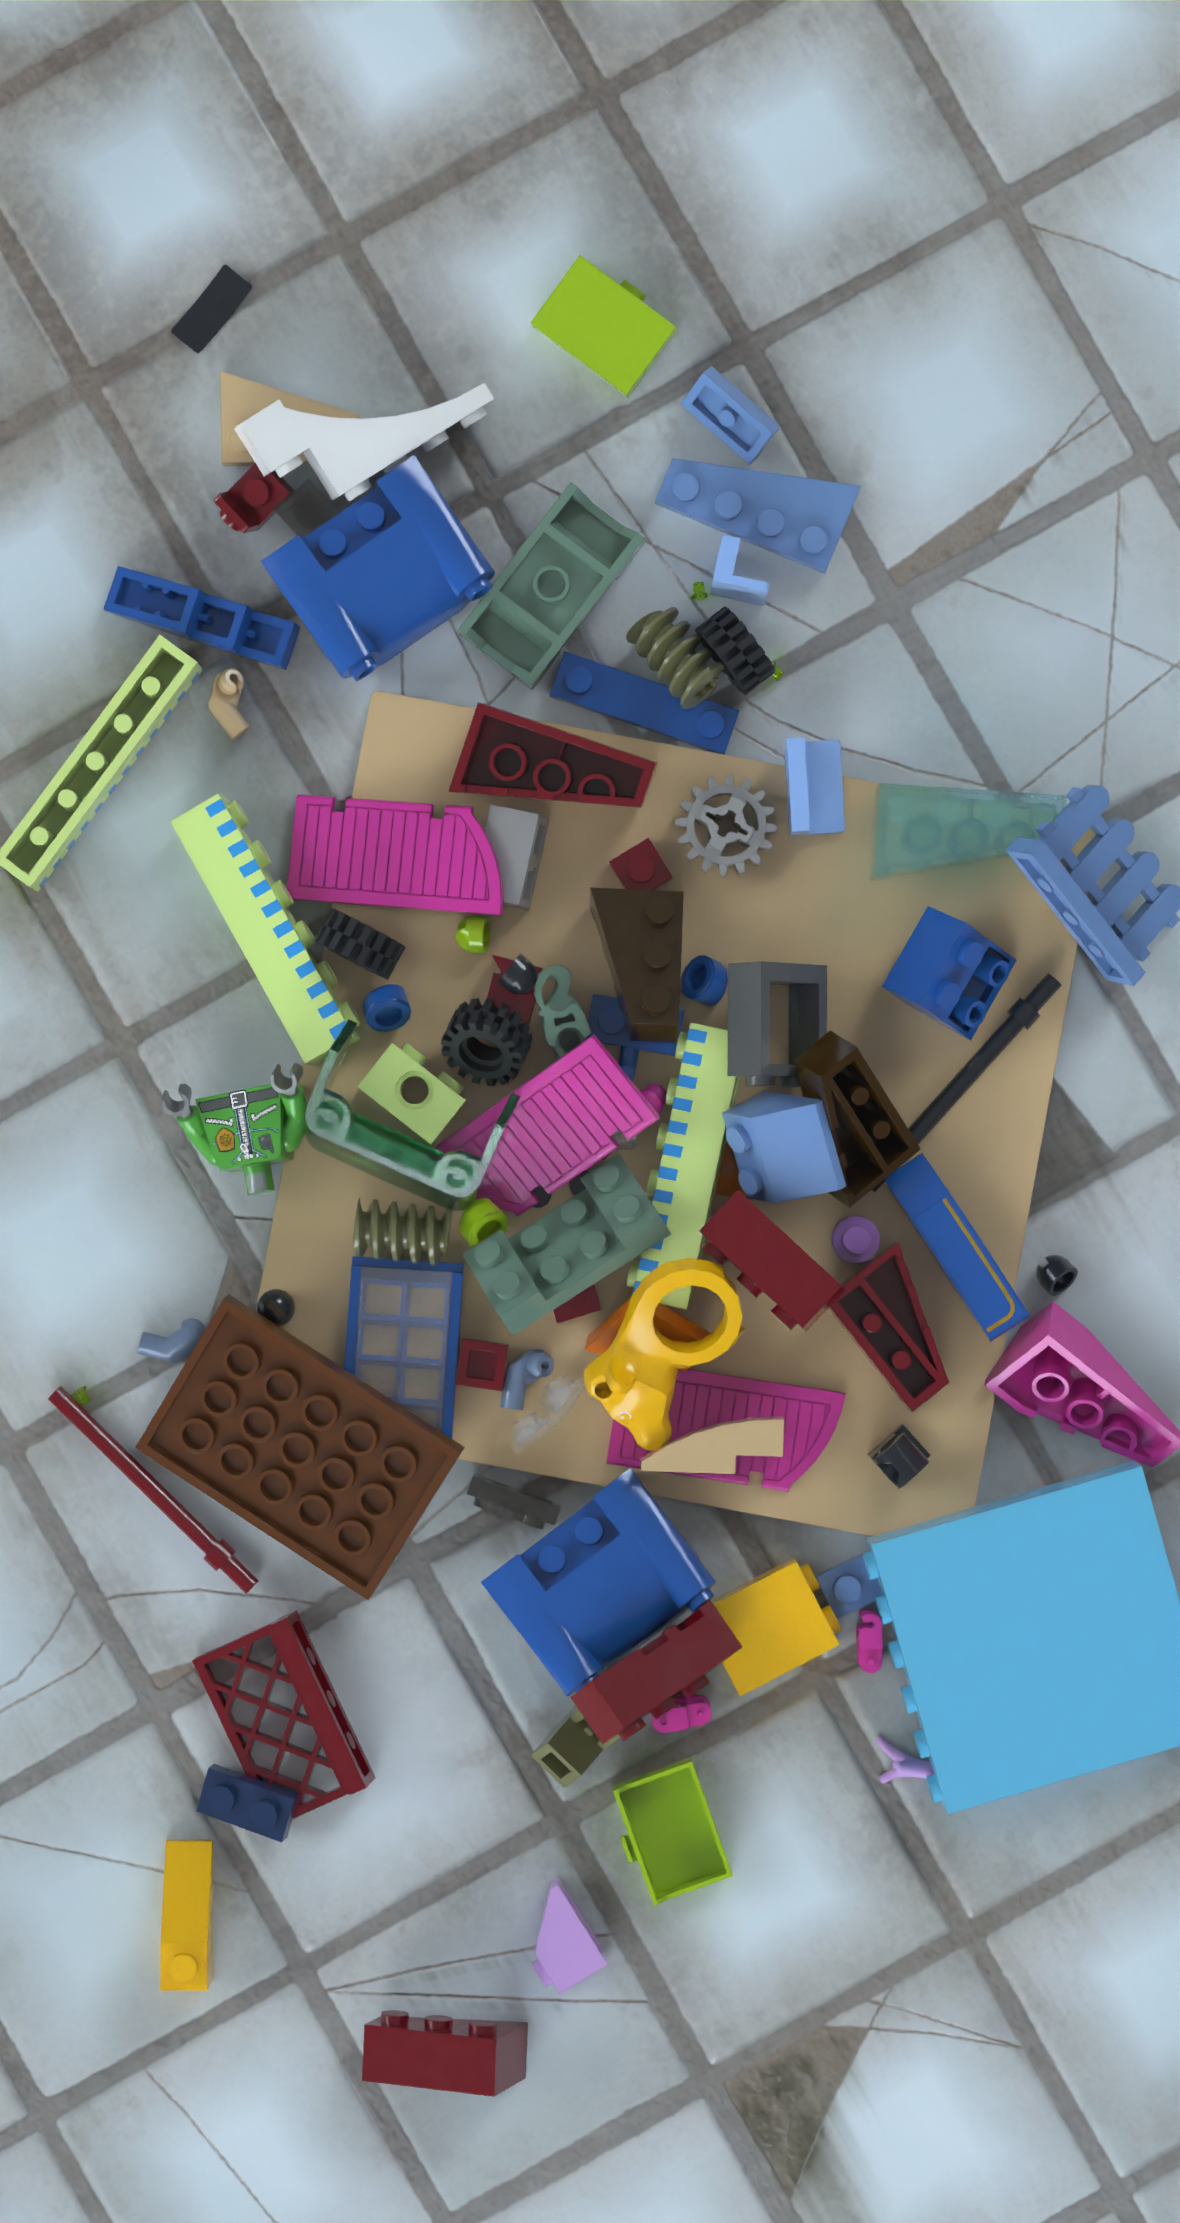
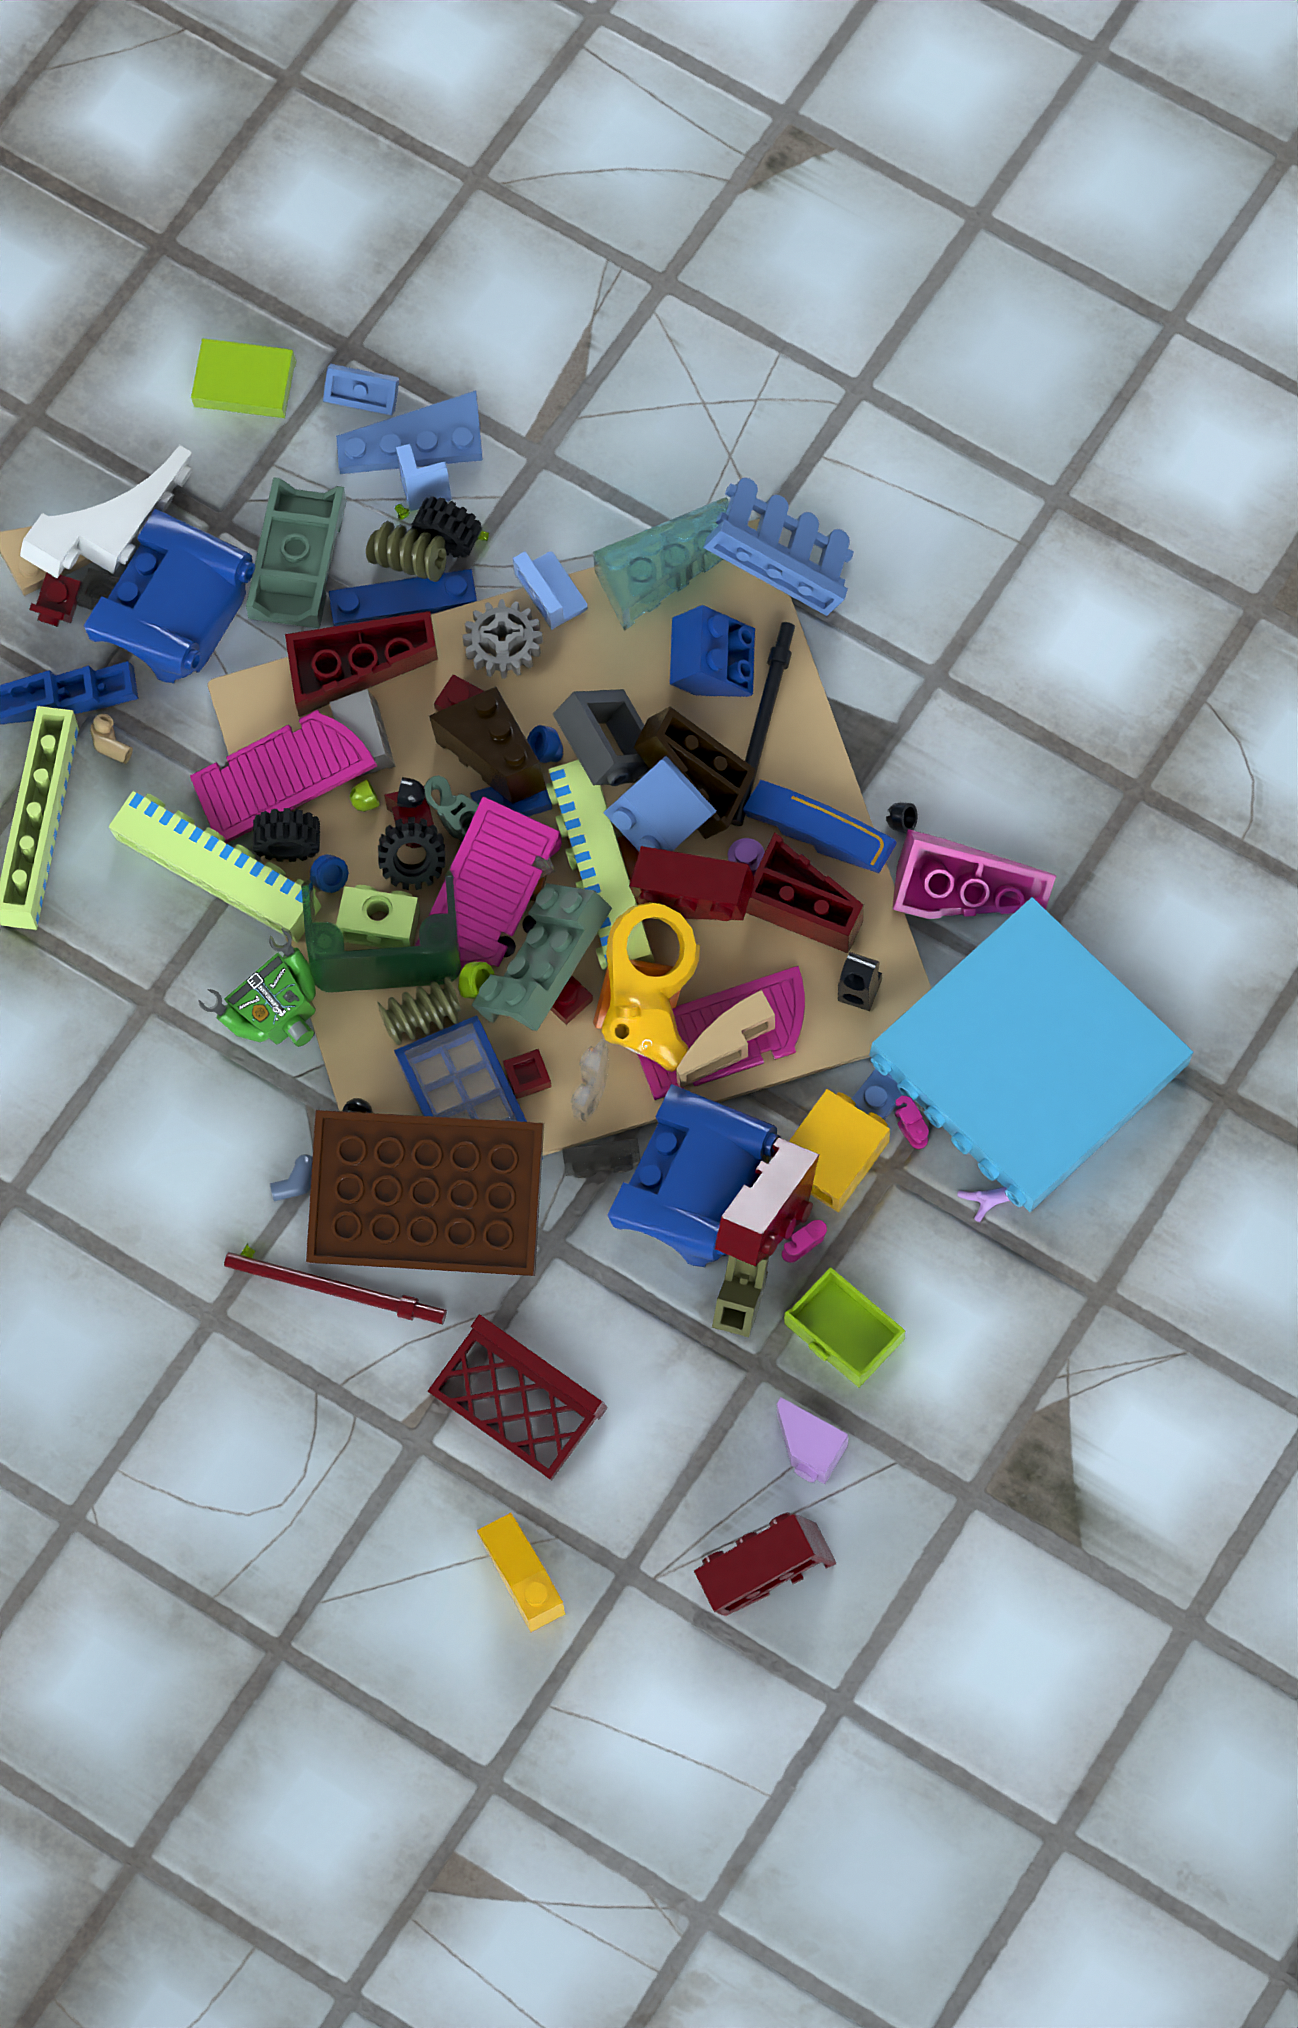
camera: 25 degrees left, 20 degrees down
(247, 1802) = (522, 1467): dark blue plate -> none
(521, 1373) = (560, 1066): sand blue arm -> none

